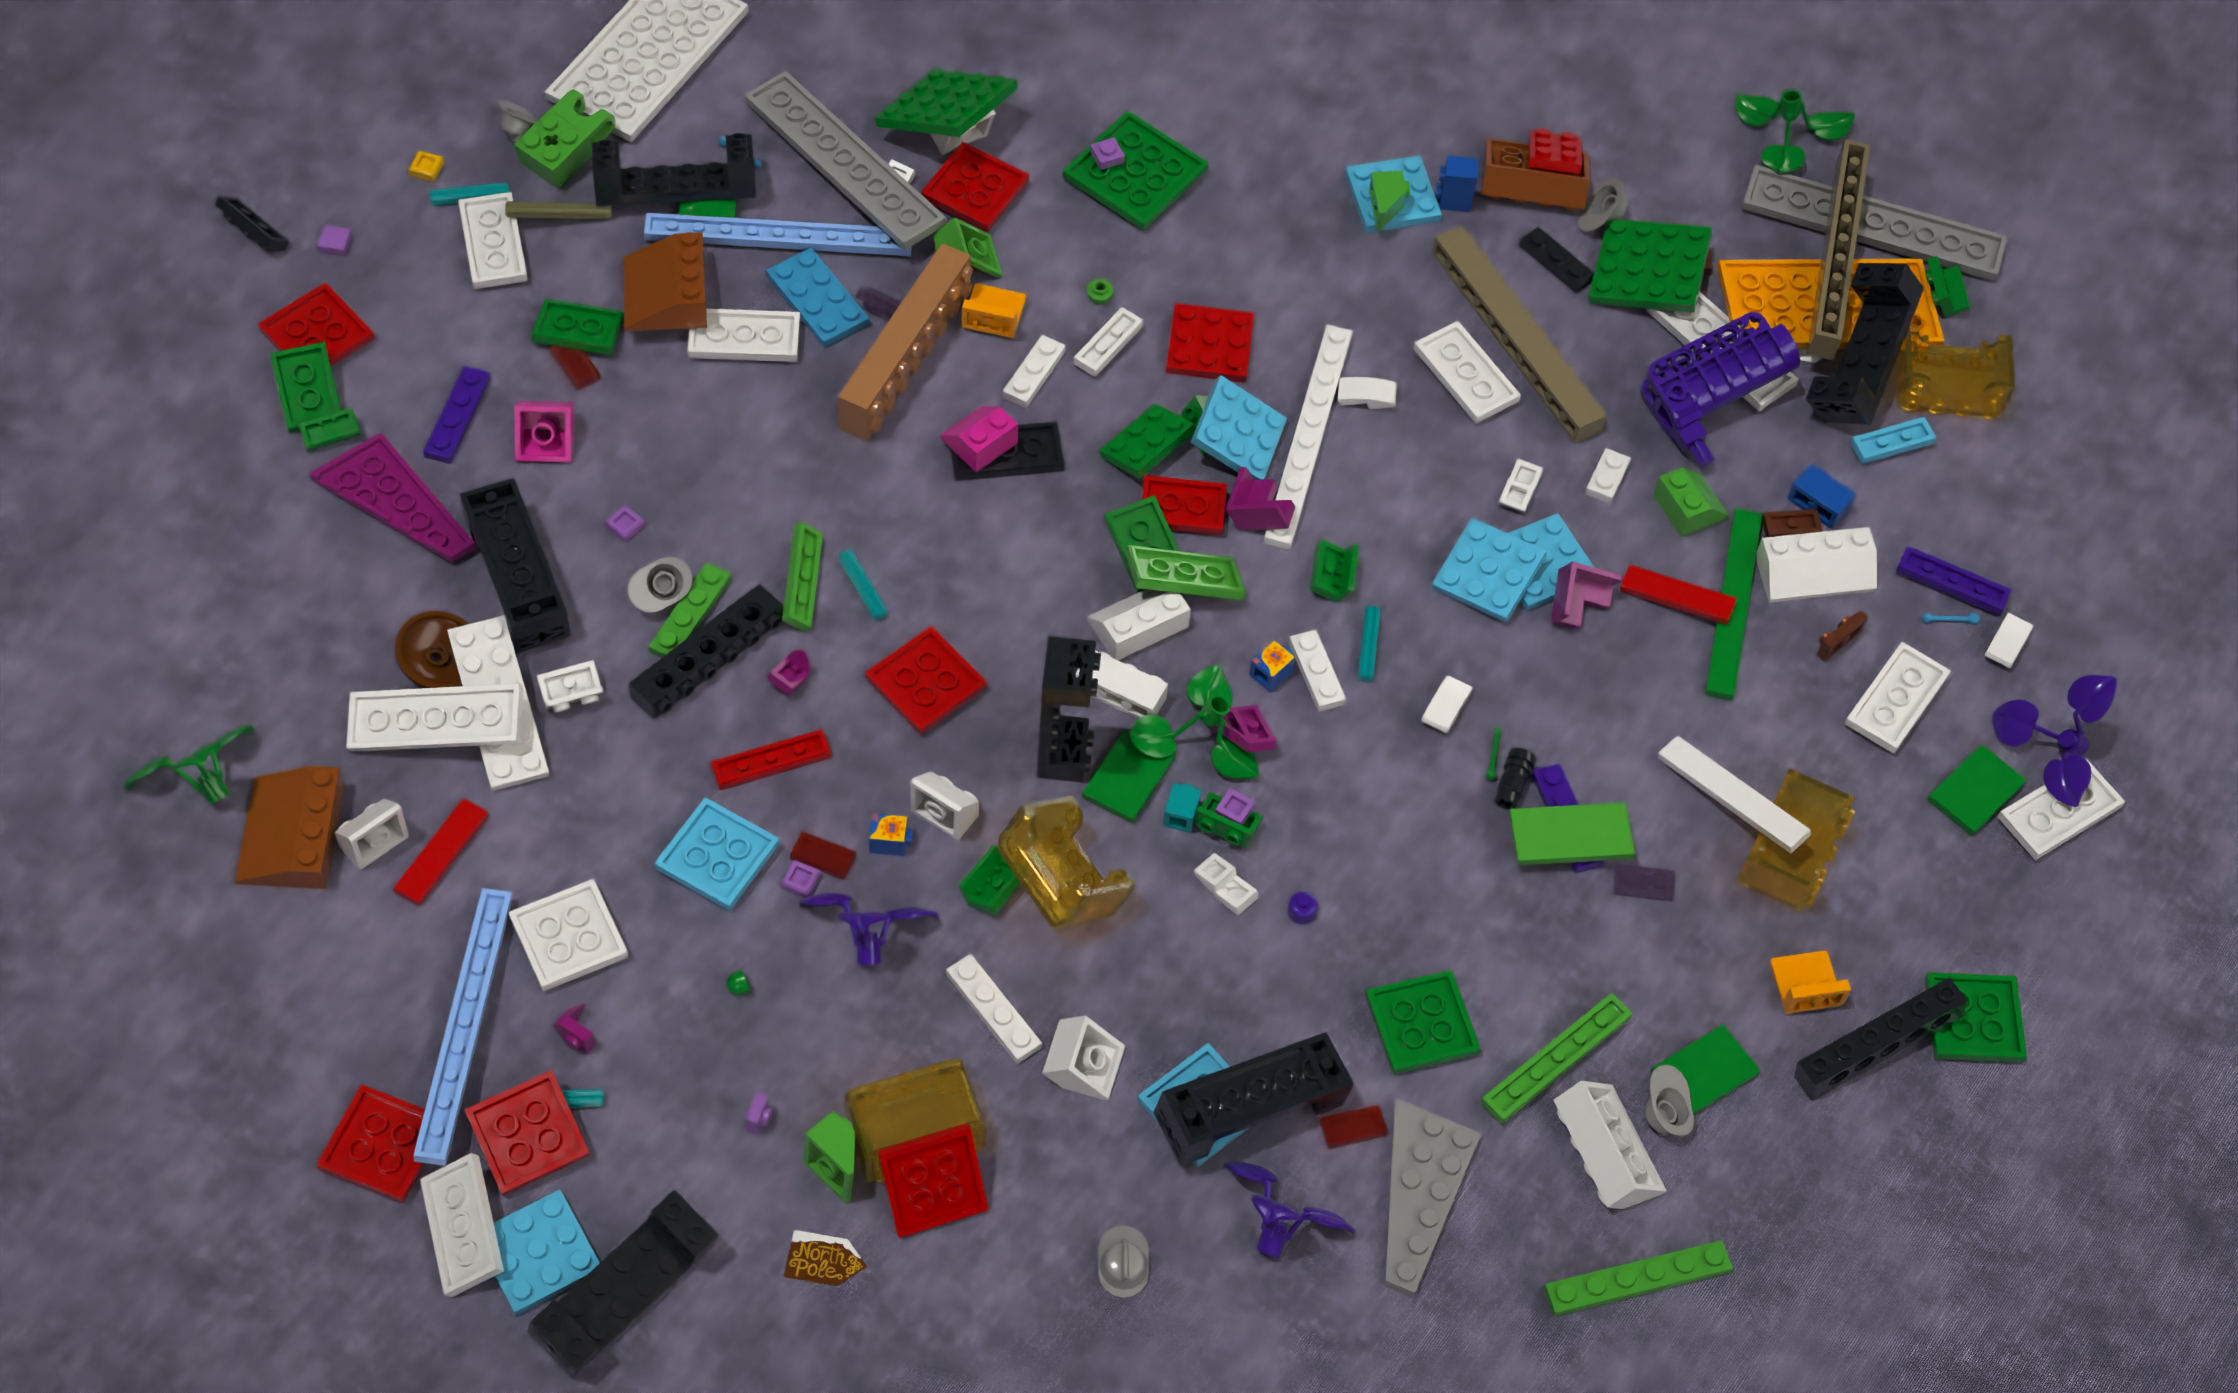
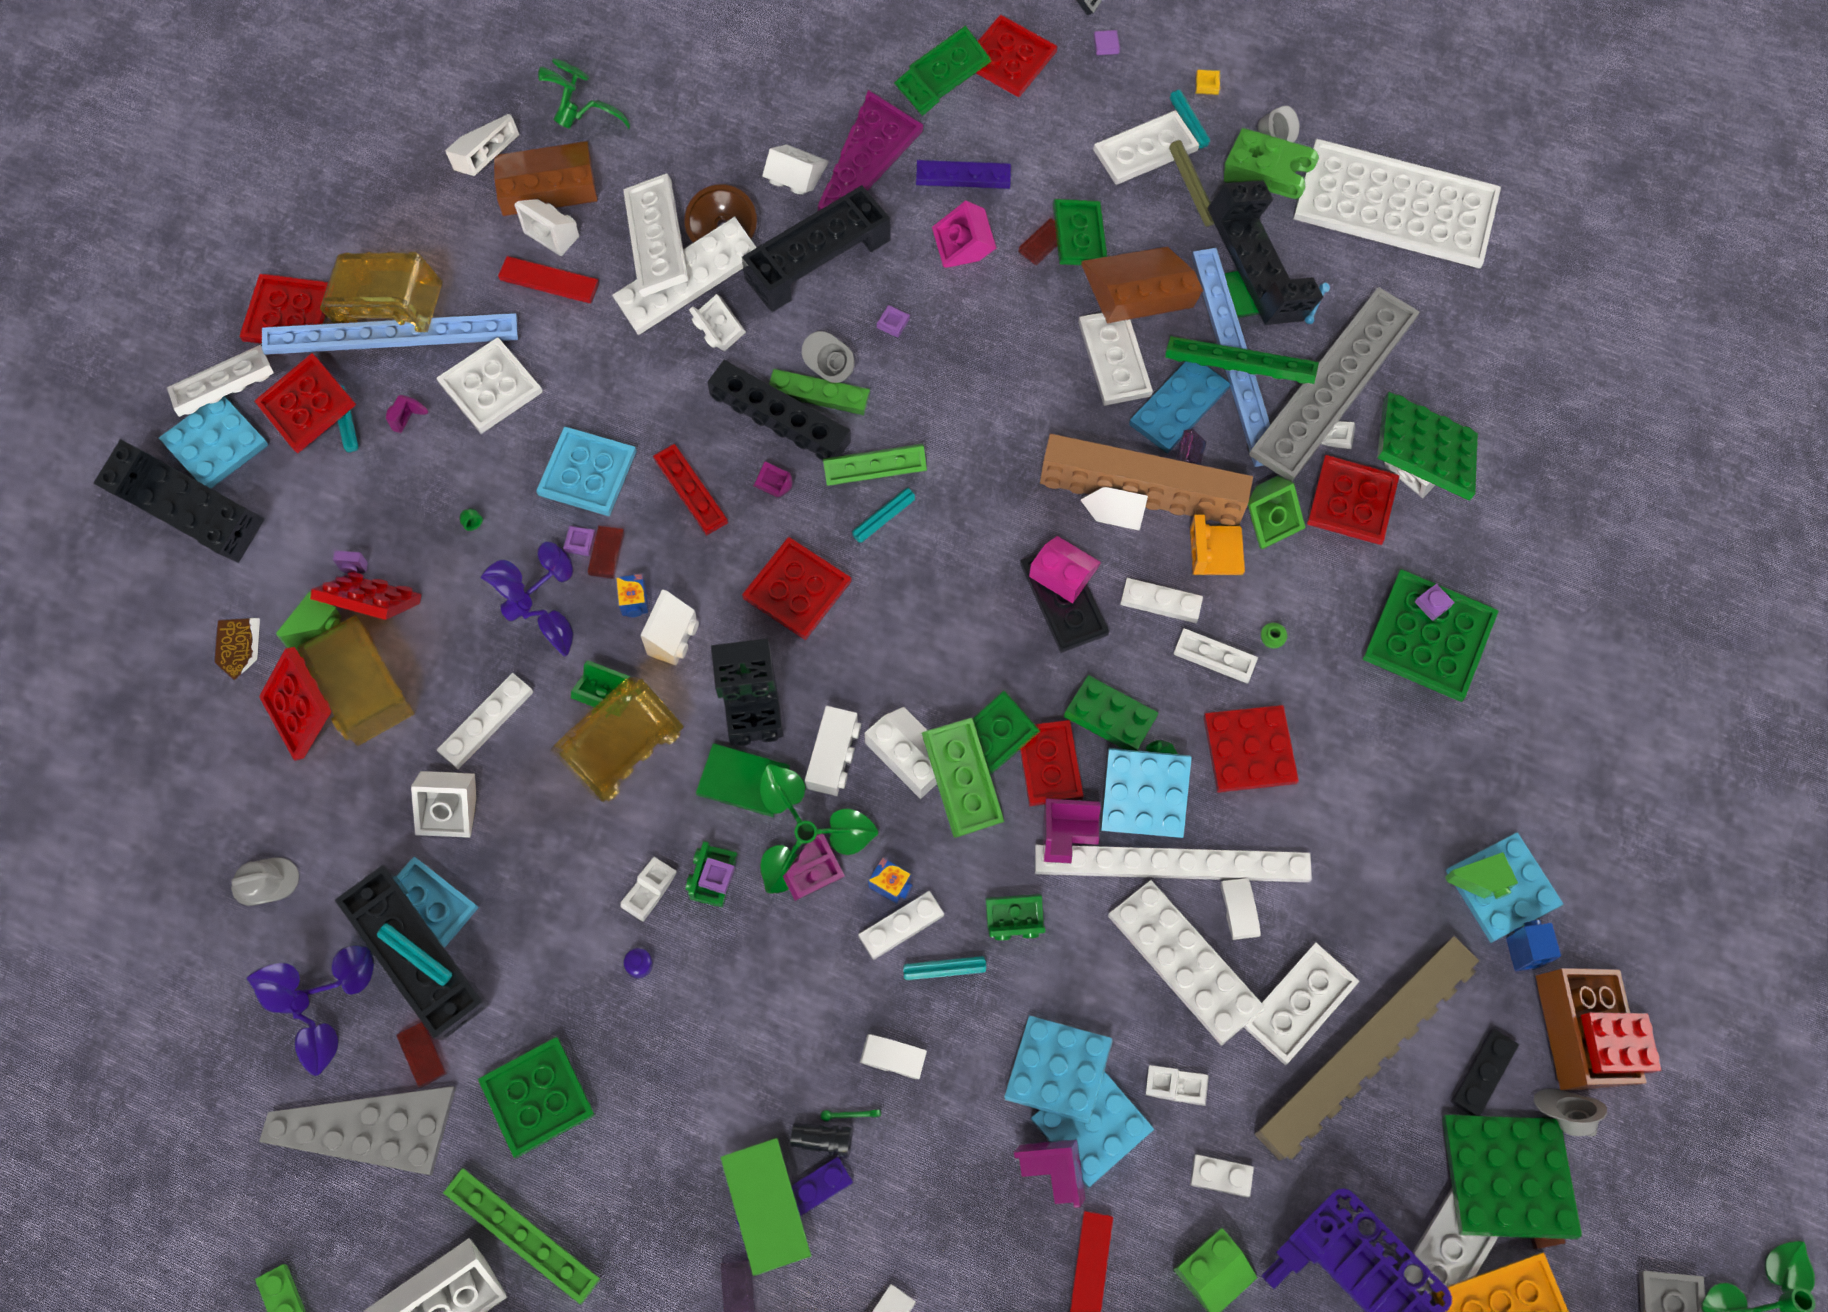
camera: 80 degrees right, 10 degrees up
(223, 890) = (480, 146): none -> white slope
(389, 569) = (794, 168): none -> white slope
(409, 1014) = (382, 287): none -> clear yellow windscreen
(796, 224) = (1242, 360): none -> green plate
(820, 1086) = (366, 596): none -> red plate
(924, 376) = (1116, 507): none -> white sticker
(1182, 807) = (717, 830): teal brick -> none
(1266, 1077) = (414, 954): none -> teal axle
(1408, 446) = (1186, 962): none -> white plate

